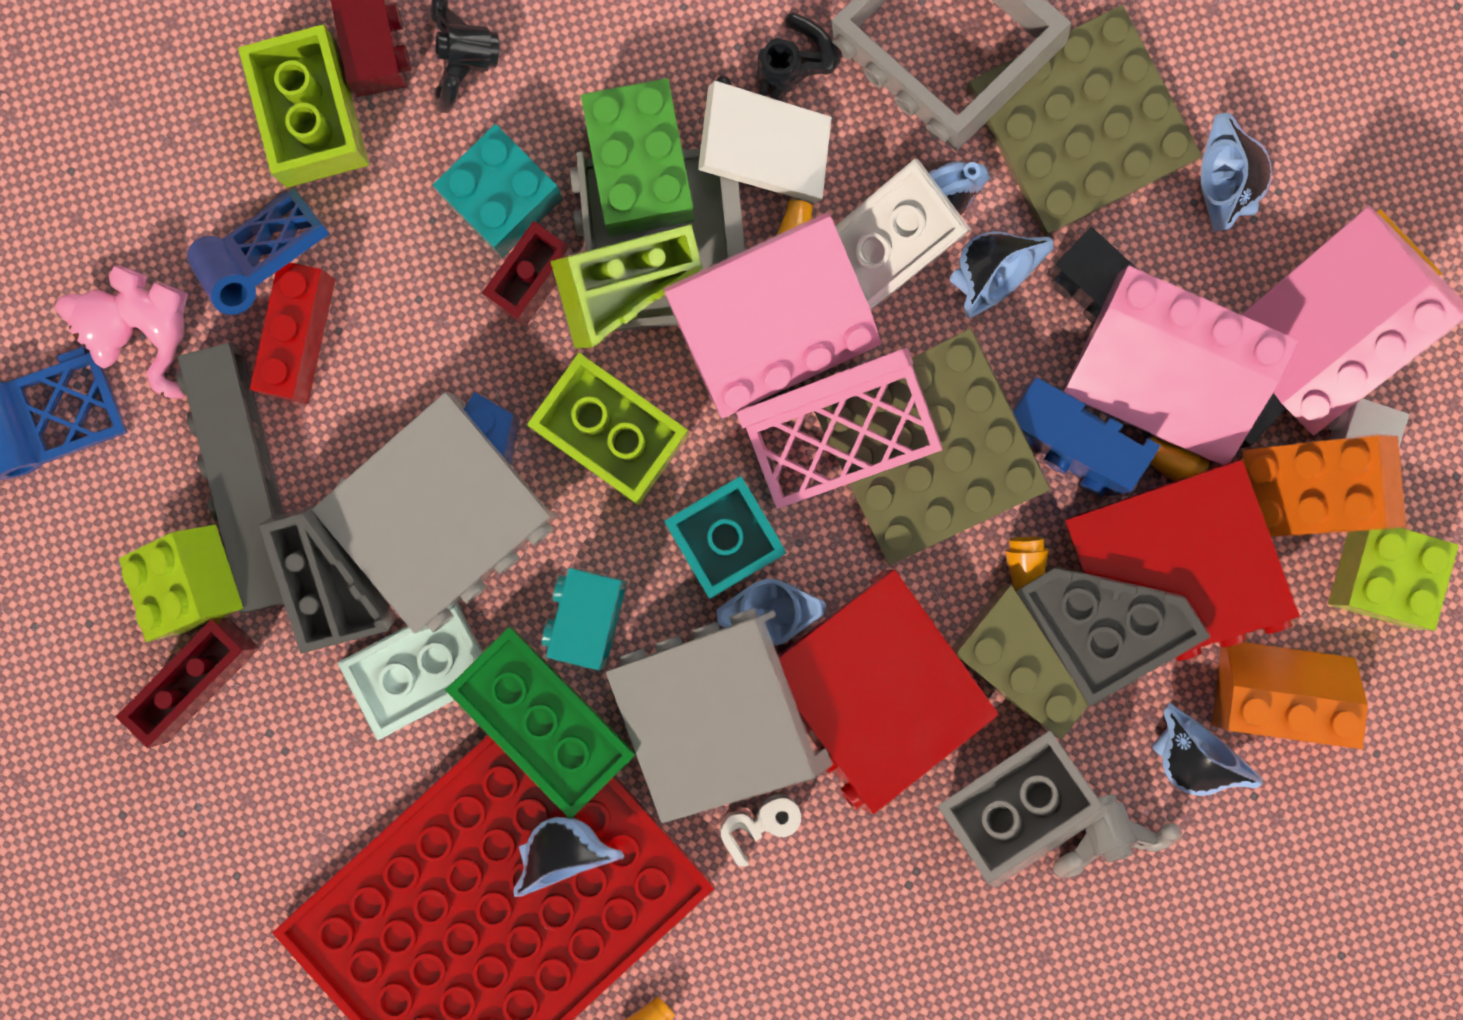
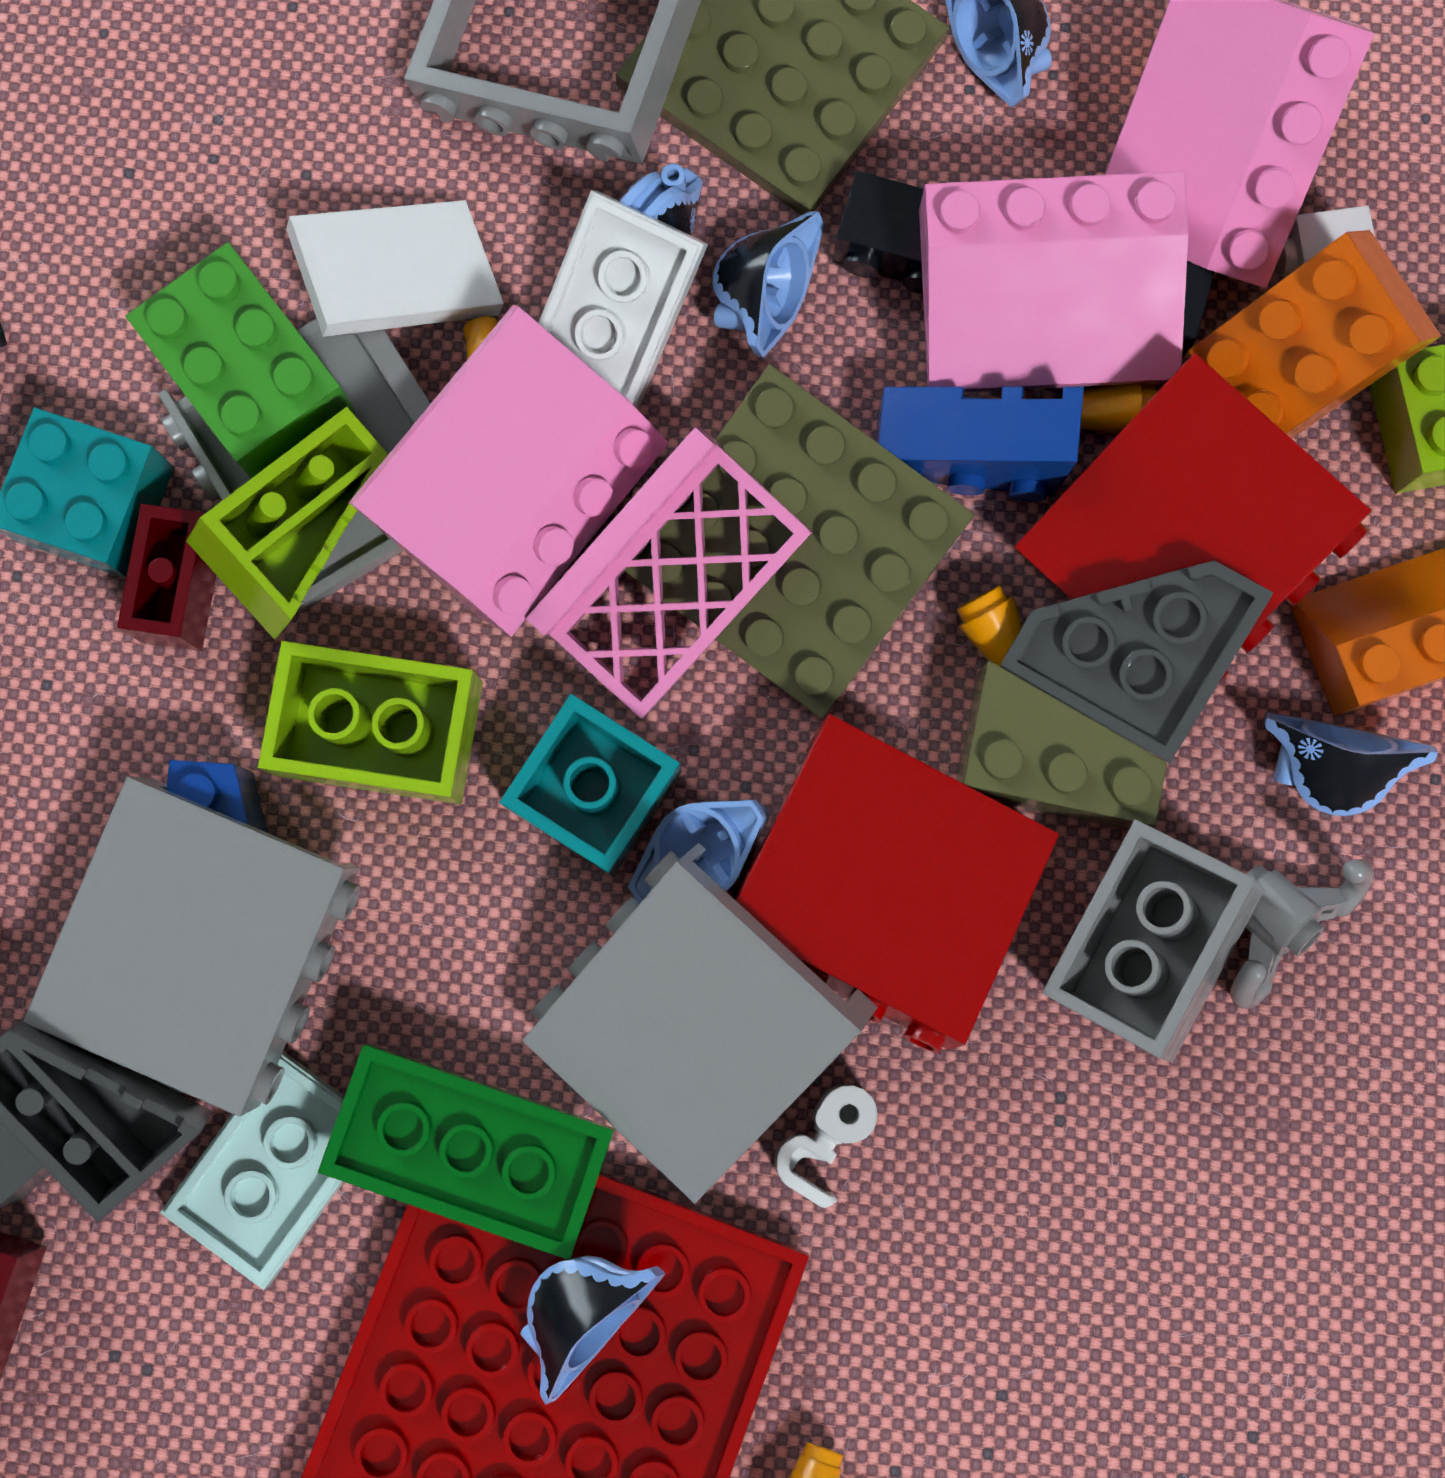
camera: 30 degrees left, 5 degrees down
(584, 618) = (457, 980): teal brick -> none
(781, 60) = (375, 165): black piece -> none

